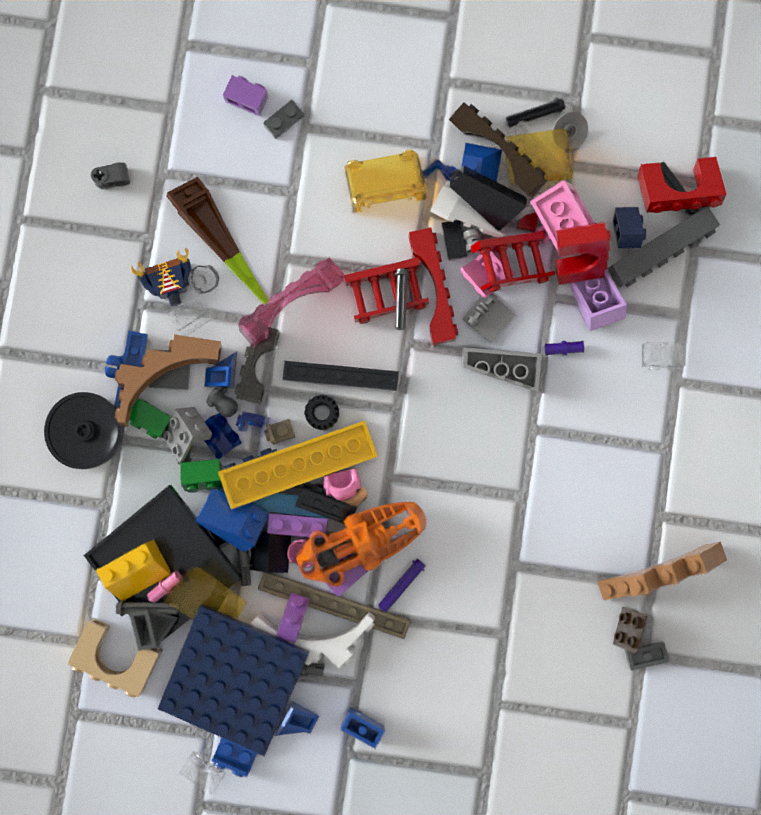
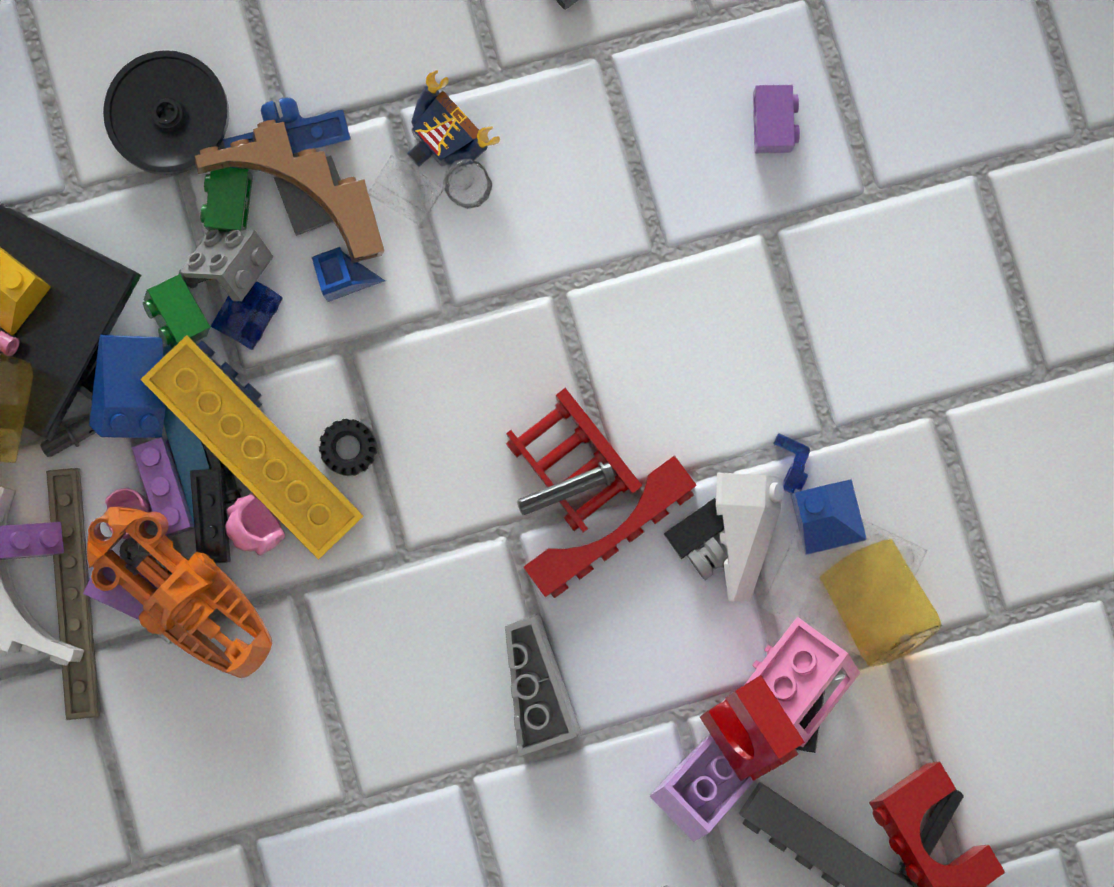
camera: 65 degrees right, 0 degrees up
(202, 215) = (563, 136): reddish brown plate -> none
(224, 405) = (295, 297): dark grey animal -> none
(247, 419) = (289, 349): clear blue bracket -> none
(250, 388) = (337, 325): clear smoke arch -> none
(270, 553) = (105, 466): black slope -> none
(279, 431) = (291, 397): dark tan bracket -> none
(283, 119) = (765, 191): dark grey plate -> none
(321, 279) = (546, 357): clear pink arch -> none
(340, 375) = (415, 450): black plate -> none
(359, 497) = (245, 559): light nougat arm -> none
(385, 180) = (738, 383): clear yellow windscreen -> none
(401, 585) = (144, 680): dark purple axle -> none
(471, 124) = (839, 592): dark brown arch -> none
(477, 275) = (666, 600): bright pink bracket -> none
(488, 317) = (604, 632): light grey hinge -> none
(489, 198) = (777, 549): black slope -> none
(515, 242) = (713, 603): red fence -> none
(528, 222) = (773, 628): red tile -> none
(536, 112) = (949, 565): black axle -> none
(564, 348) = (606, 767): dark purple pin -> none
(578, 127) = (953, 642): light grey dish -> none
(628, 227) = (832, 785): dark blue brick -> none

